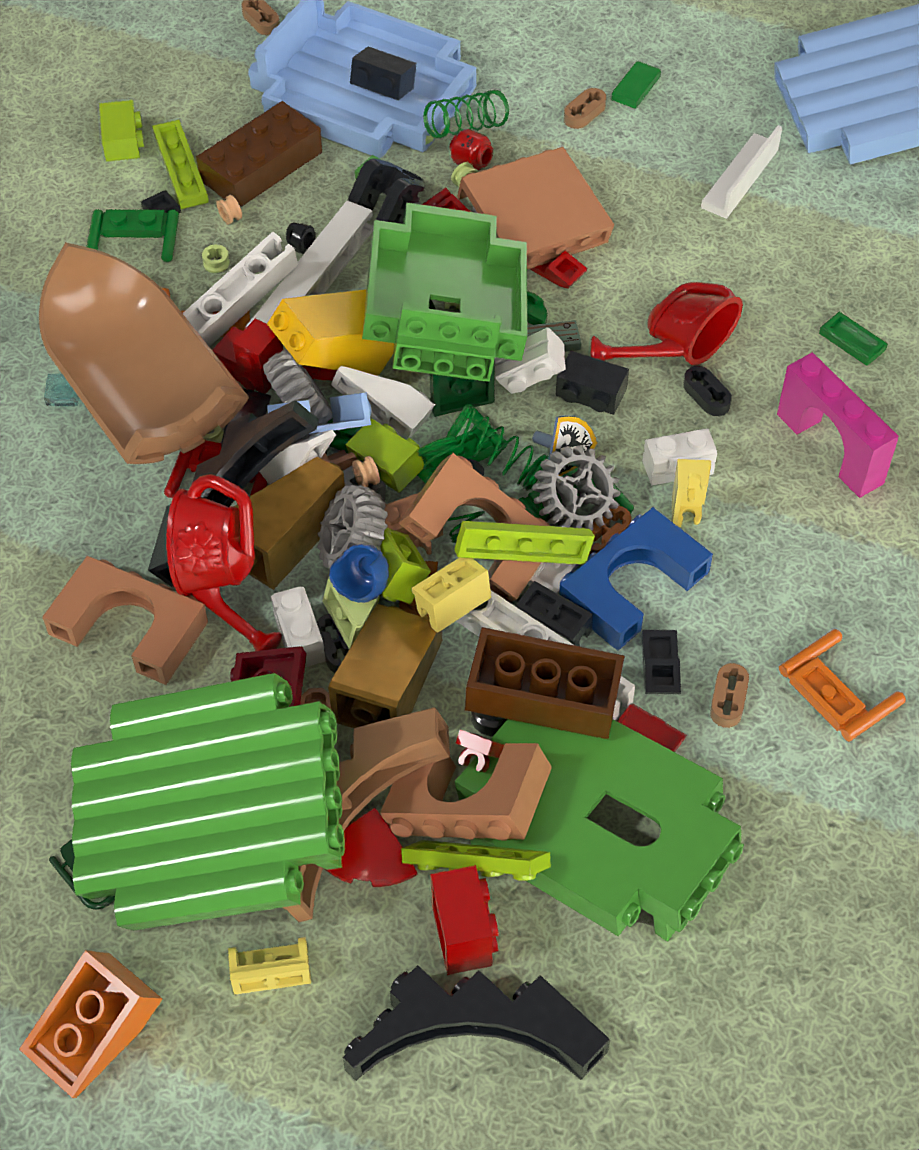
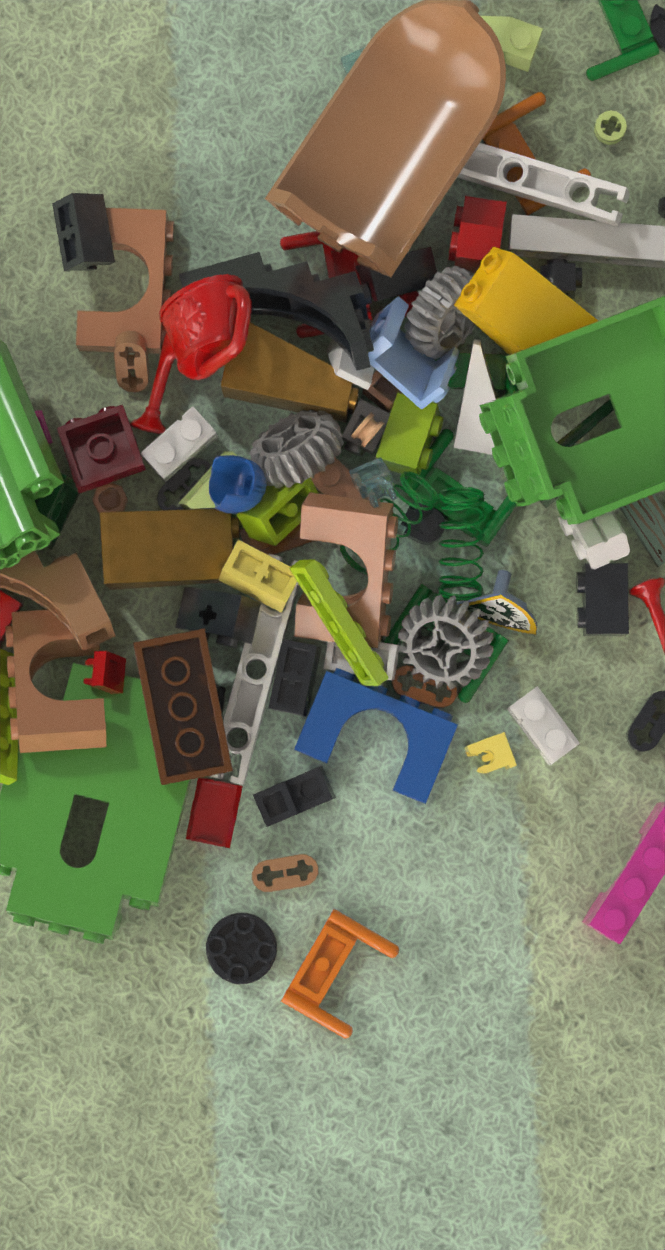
camera: 70 degrees right, 30 degrees up
(64, 620) = (83, 232): none -> black hinge
(205, 628) = (138, 361): none -> medium nougat beam
(412, 473) = (373, 481): none -> clear light blue plate
(453, 655) = (223, 615): none -> black brick
(787, 757) = (241, 948): none -> black tile

